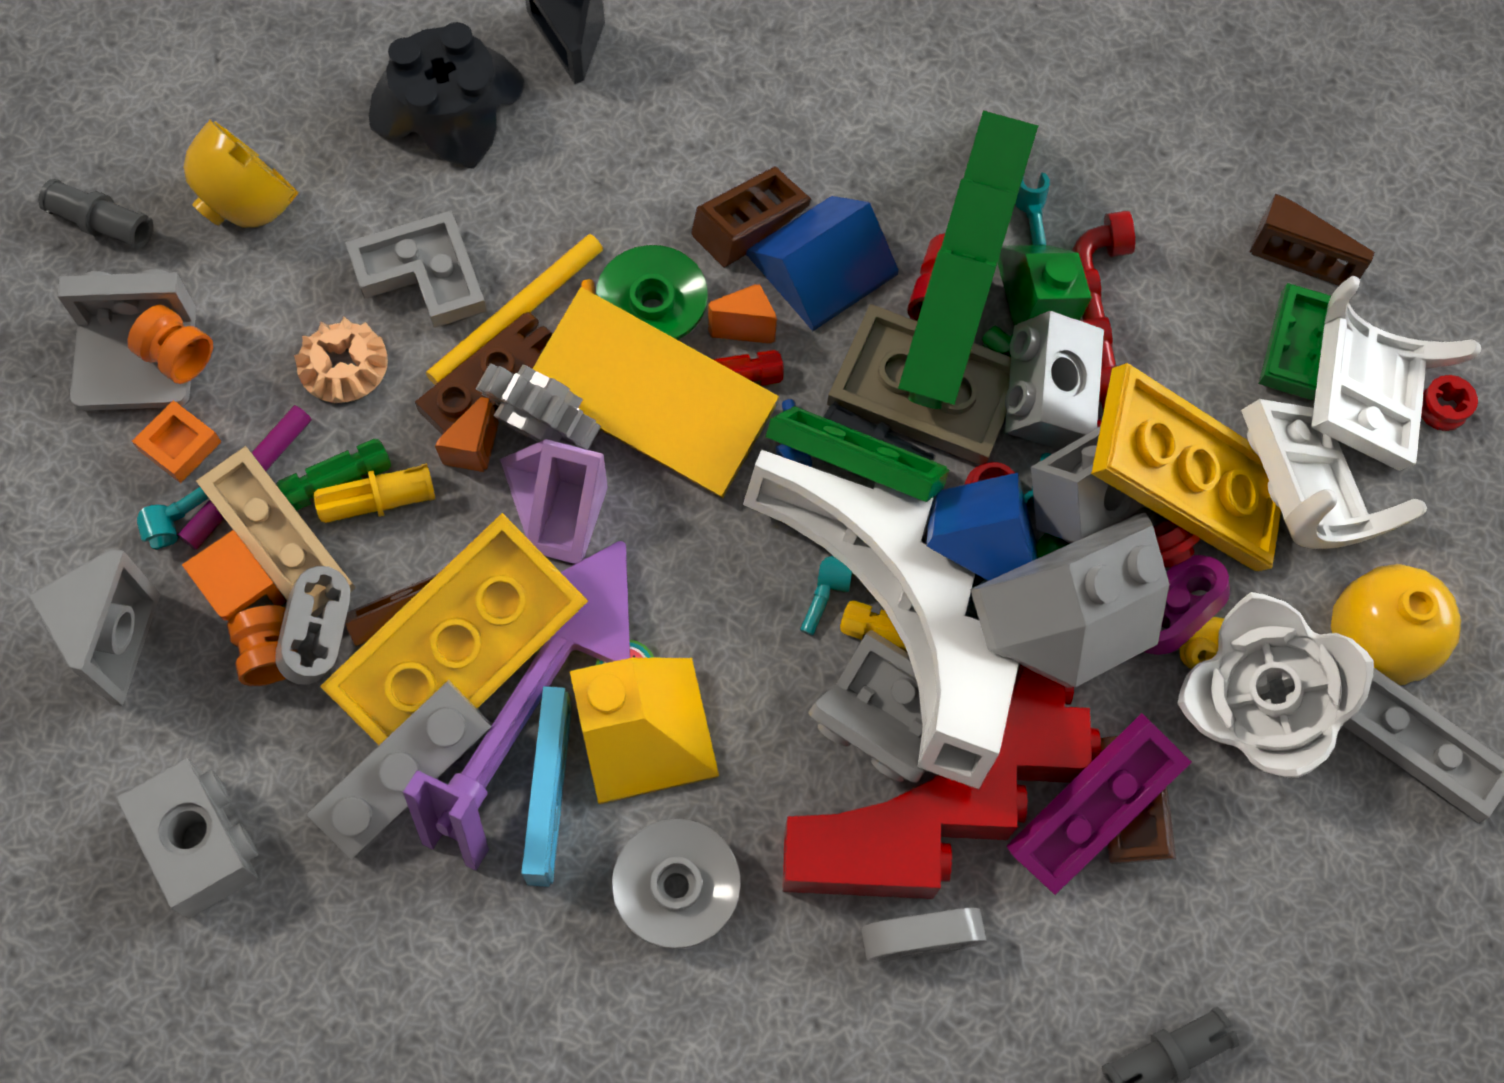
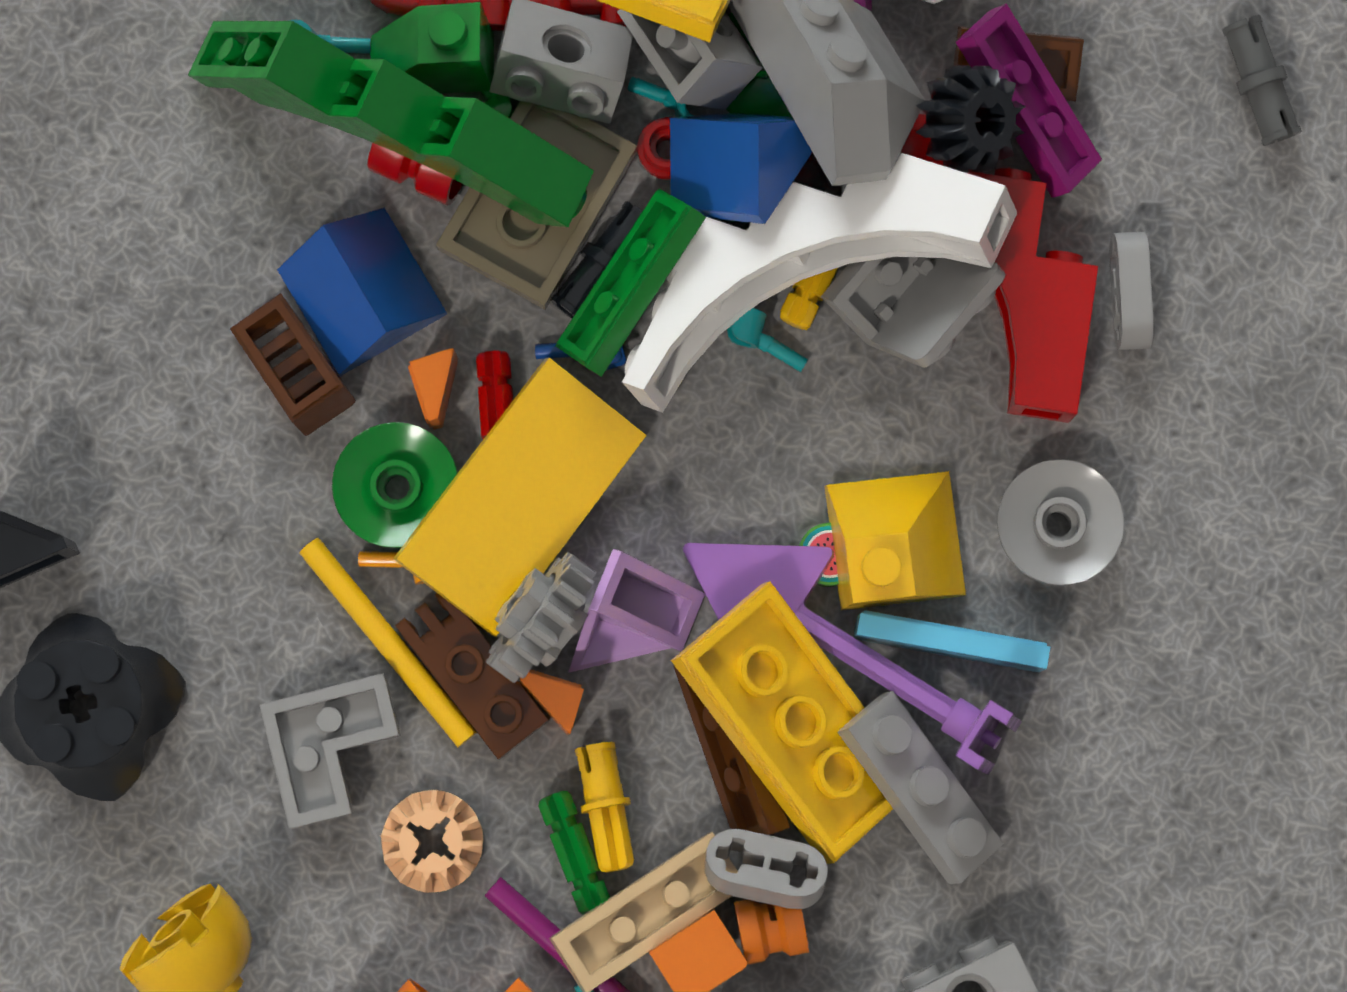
camera: 80 degrees left, 15 degrees up
(1066, 753) = (970, 118): none -> black gear

